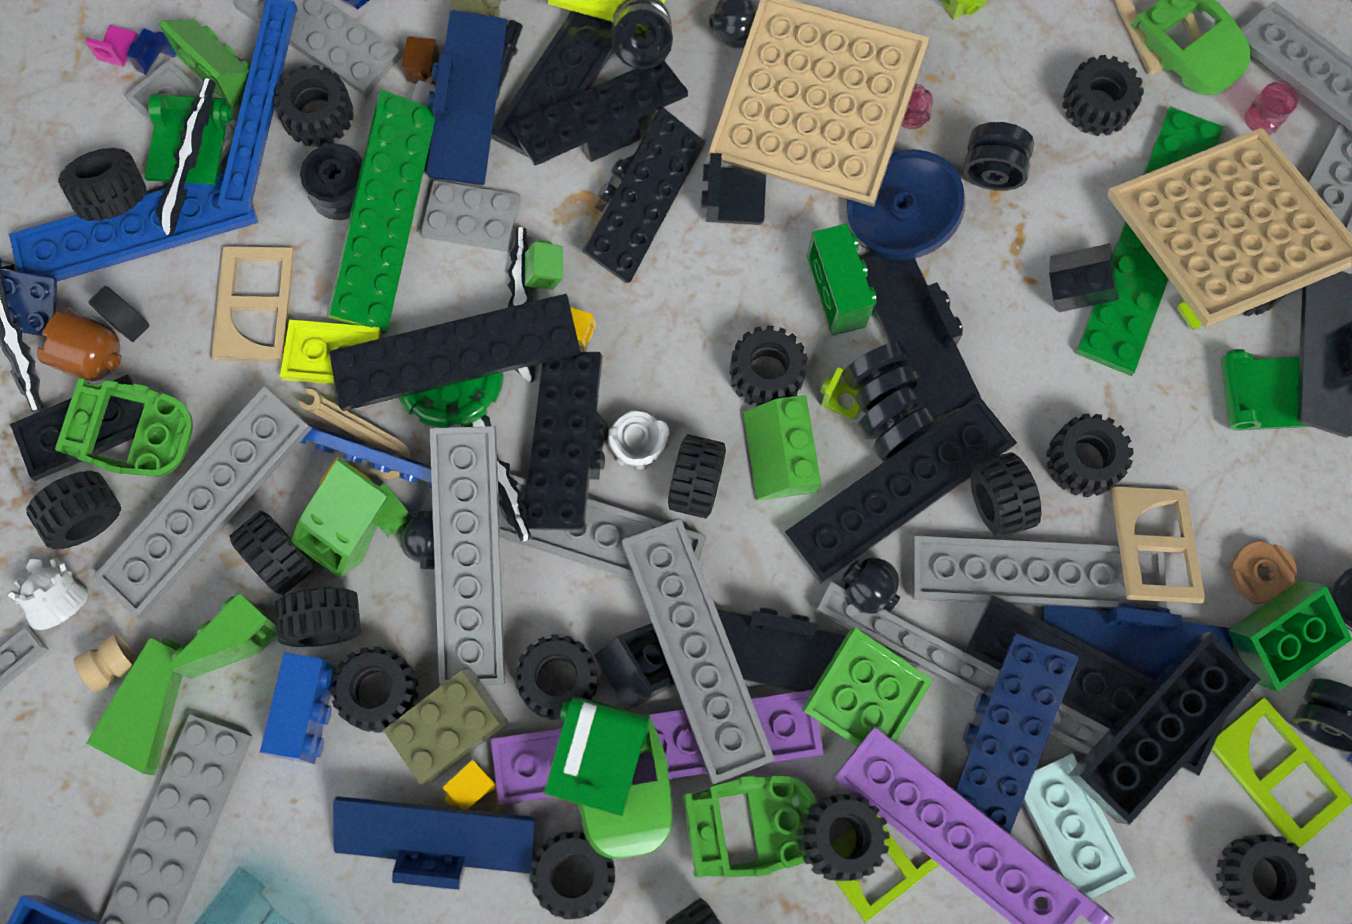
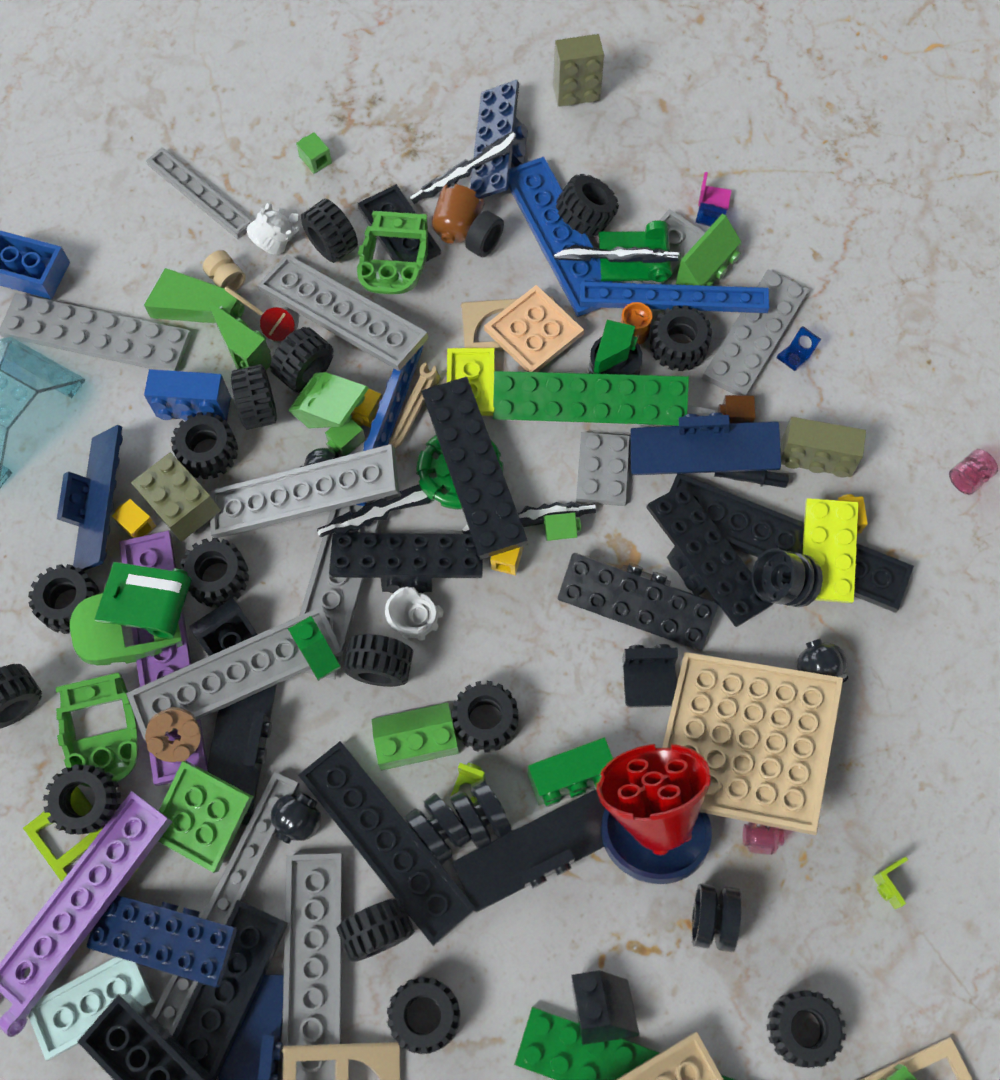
camera: 90 degrees right, 5 degrees down
(196, 595) = (274, 322): none -> red piece
(272, 269) = (534, 330): none -> light nougat plate
(283, 151) = (640, 317): none -> orange wheel
(321, 166) = (614, 345): none -> green slope
(678, 545) = (314, 648): none -> green slope
(786, 718) = (164, 722): none -> medium nougat plate
(881, 175) = (656, 793): none -> red cone

